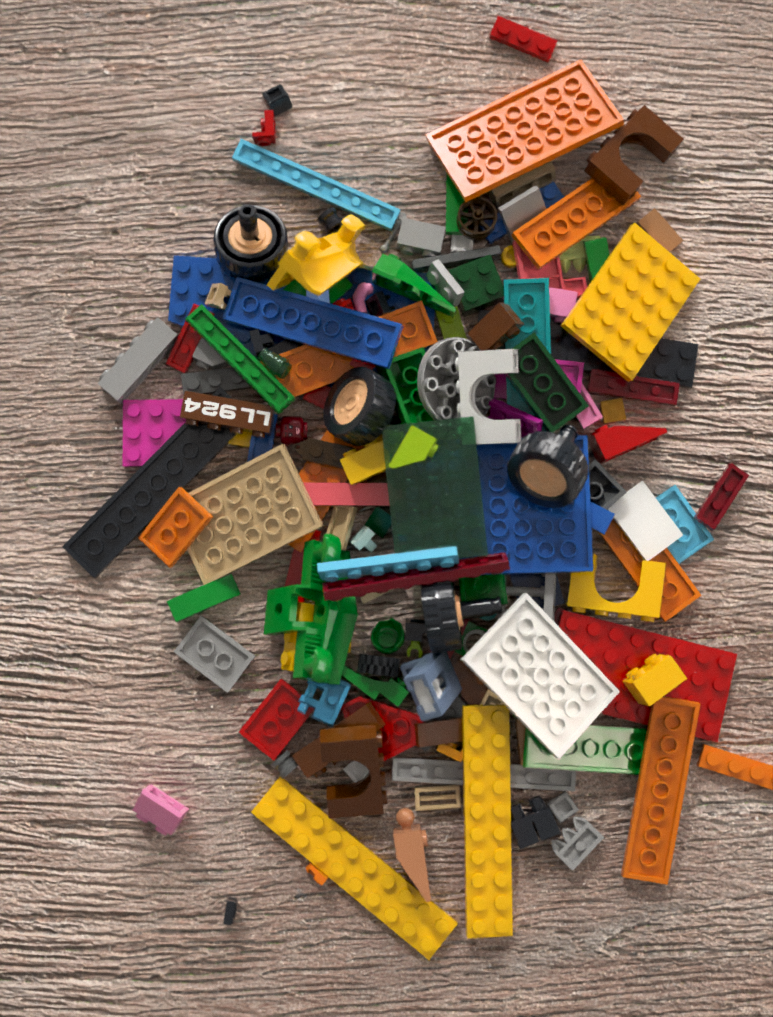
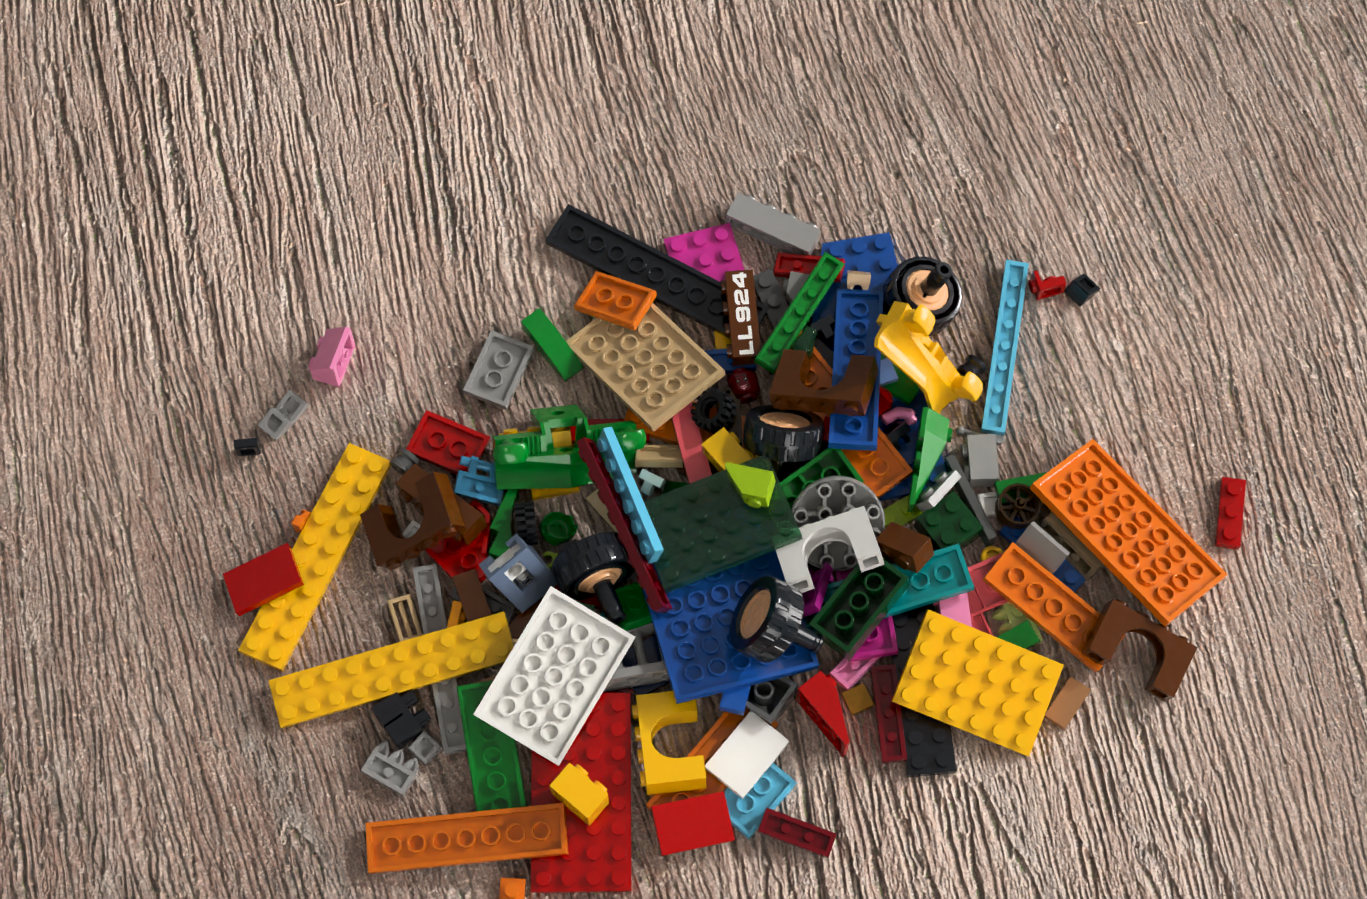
camera: 75 degrees right, 15 degrees down
(205, 868) = (285, 414): none -> light grey slope
(316, 452) = (703, 407): none -> black tyre
(348, 336) = (848, 397): none -> reddish brown arch
(368, 923) = (263, 579): none -> red tile
(409, 849) = (342, 602): nougat slope -> none
(694, 585) = (692, 823): none -> red tile

